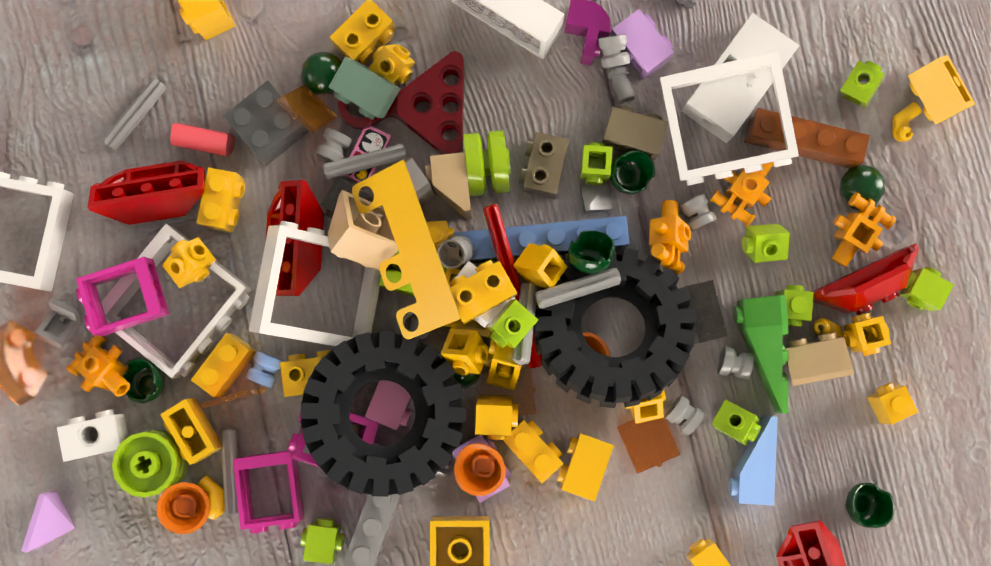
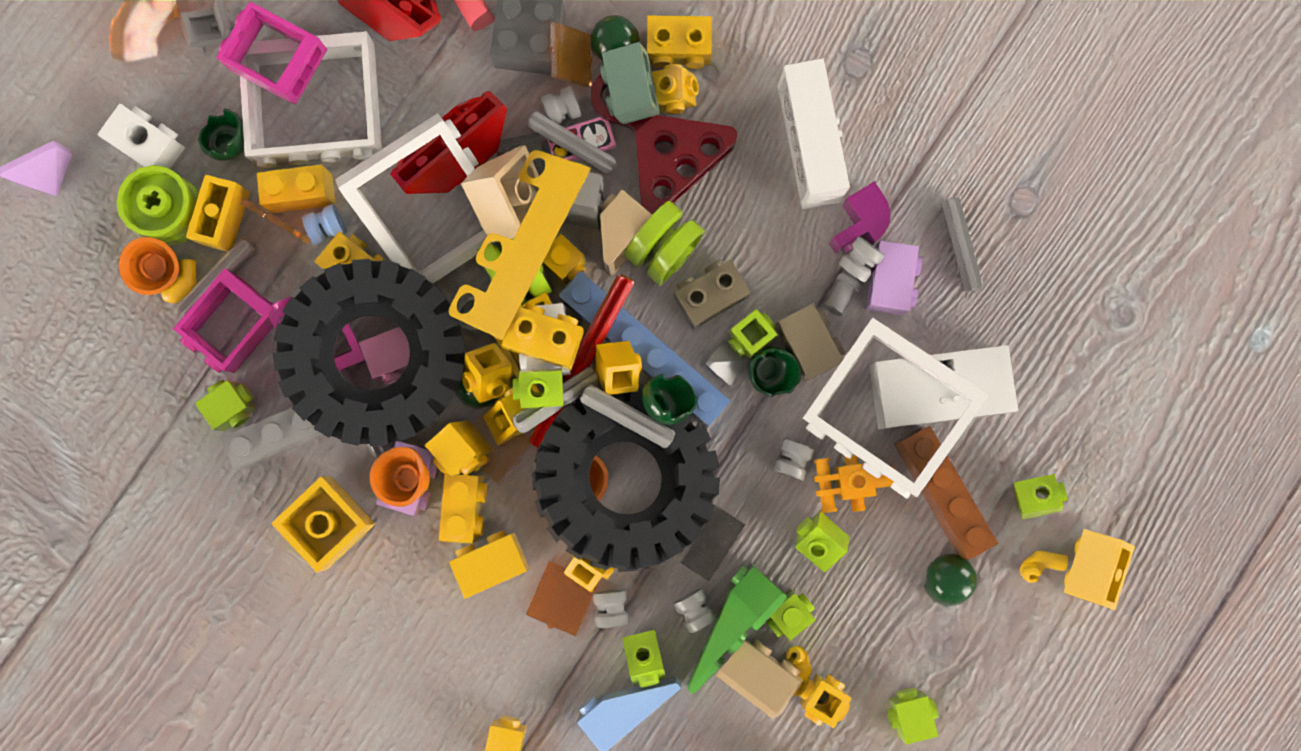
camera: 45 degrees right, 0 degrees up
(100, 367) = (202, 92): light orange piece -> none
(188, 262) = (349, 78): yellow brick -> none
(221, 200) = (429, 57): yellow brick -> none
(450, 255) = (558, 280): light grey wheel -> none
(669, 237) = (747, 455): light orange piece -> none
(859, 232) = (906, 612): light orange piece -> none
(869, 284) = (871, 663): red wedge -> none

